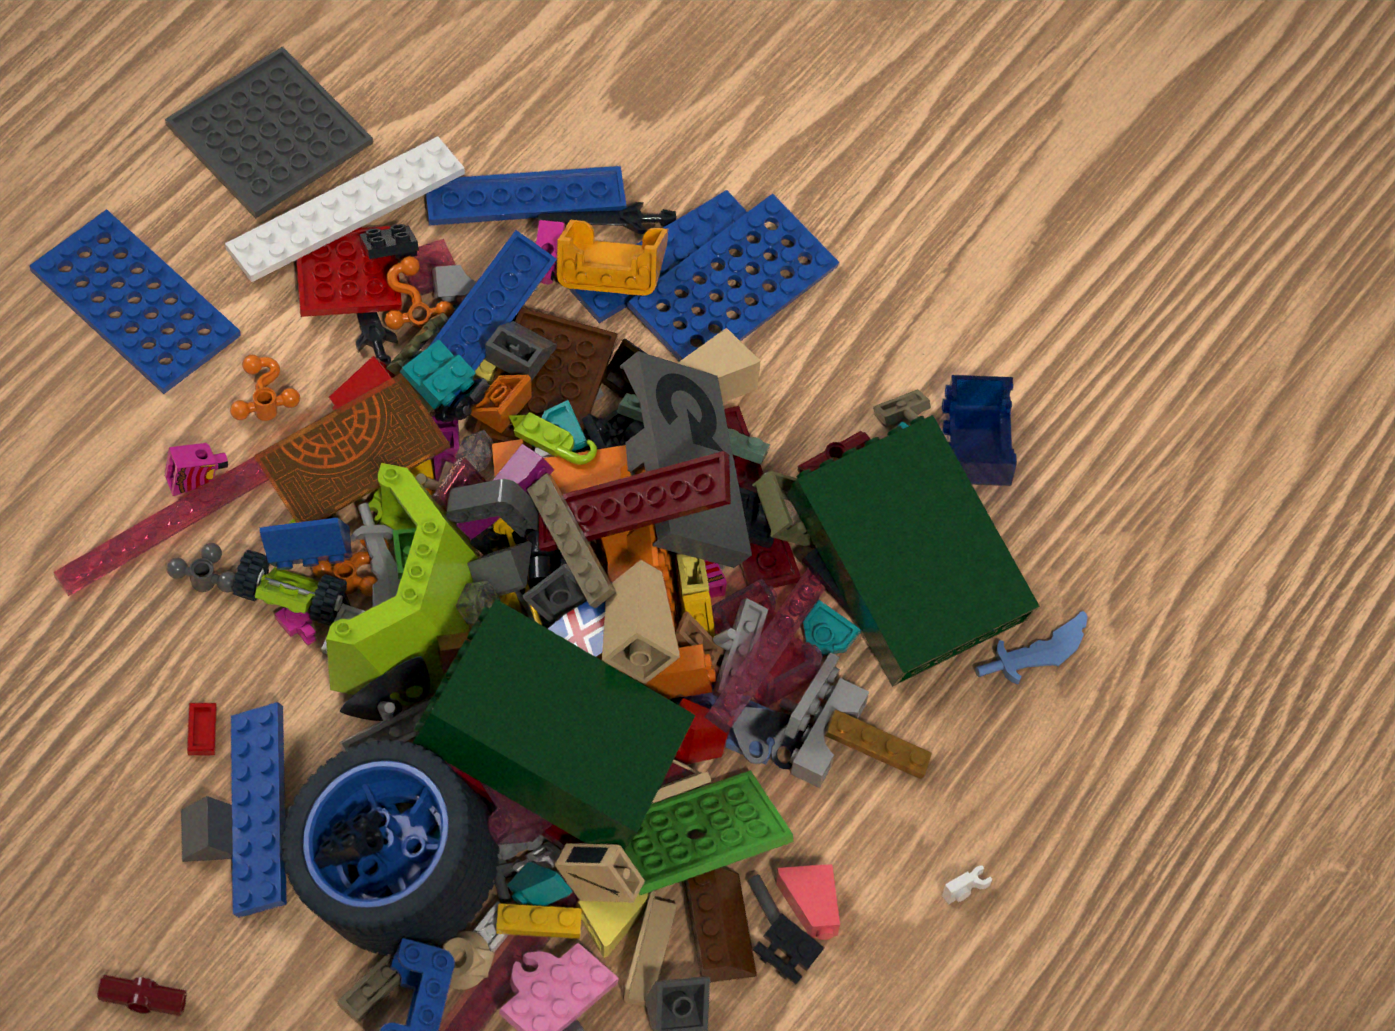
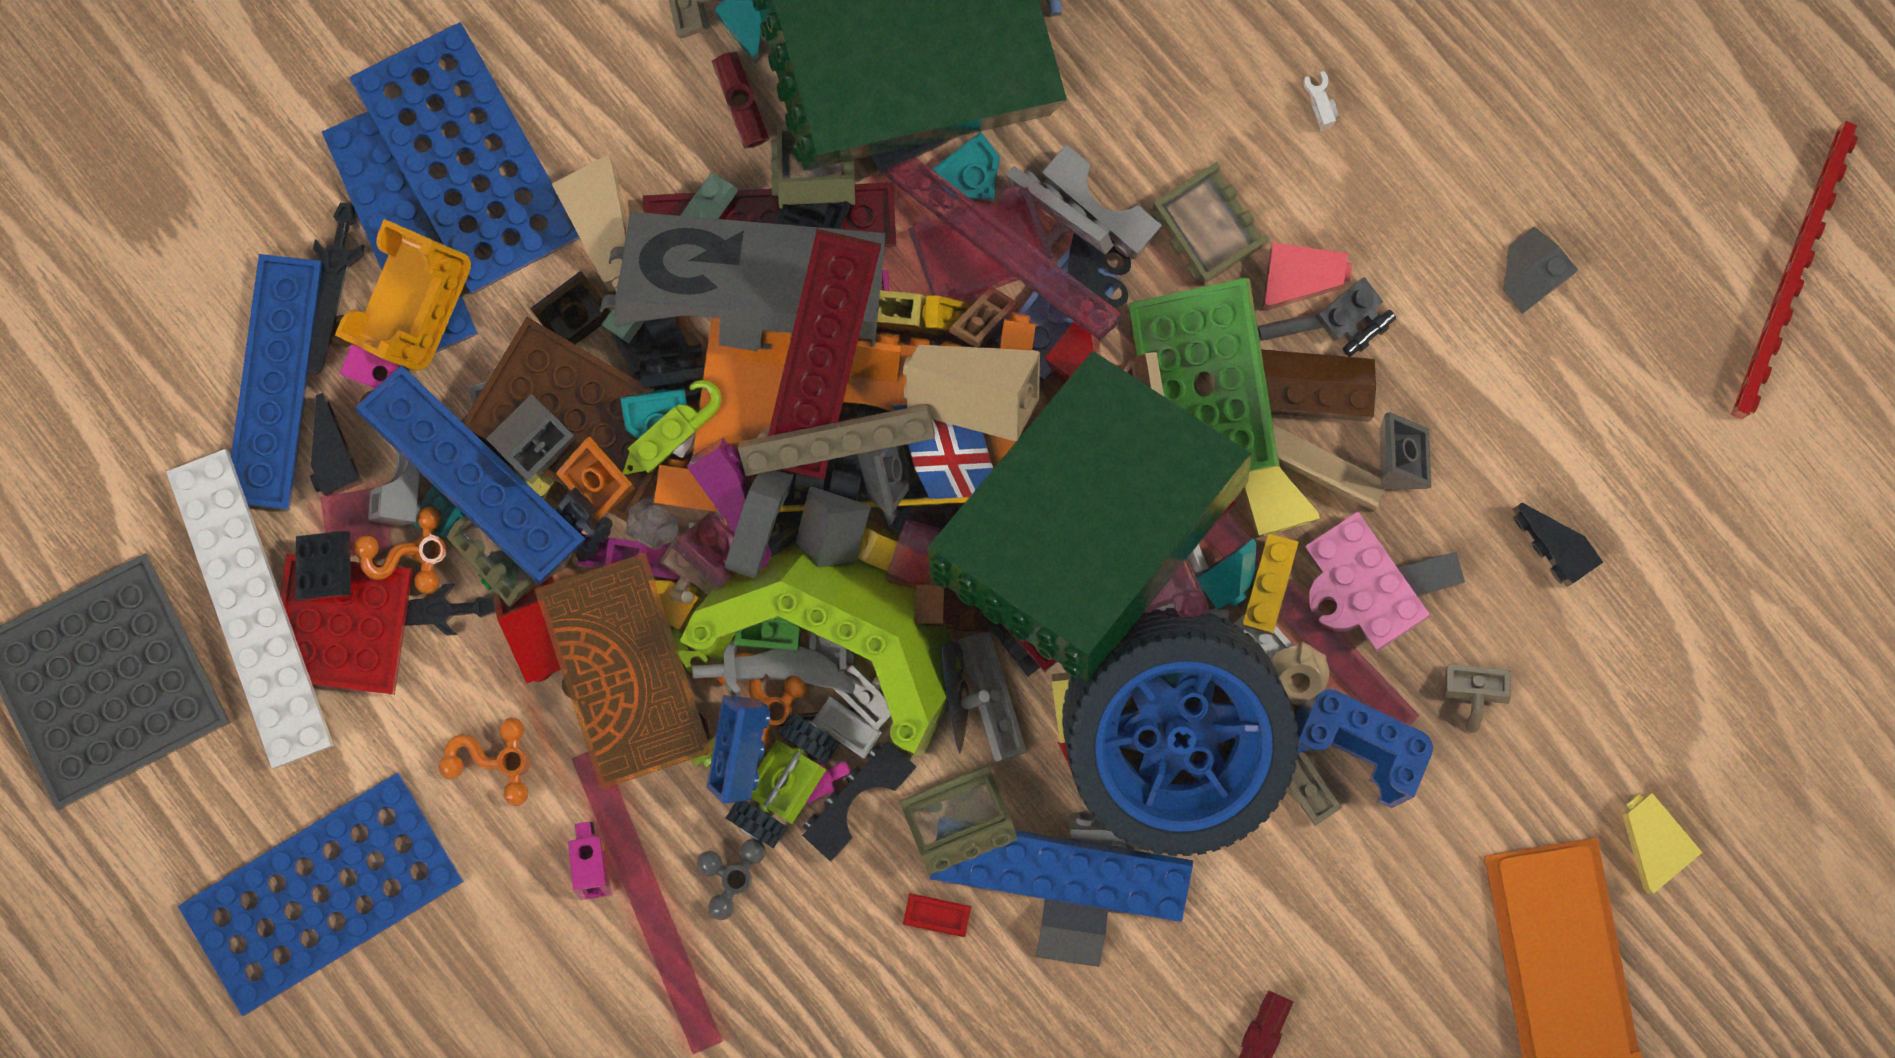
camera: 70 degrees left, 25 degrees up
(258, 634) = (830, 830): none -> black arch
(283, 718) = (958, 820): none -> olive window
(351, 840) = (1177, 775): black plate -> none
(438, 374) = (551, 545): teal plate -> none
(474, 599) = (869, 567): clear brick -> none
(479, 240) = (331, 457): none -> black slope
(599, 872) = (1253, 504): tan brick -> none
(739, 640) = (987, 277): light grey plate -> none
(835, 817) = (1208, 224): none -> window
(878, 744) = (1130, 151): pearl gold plate -> none

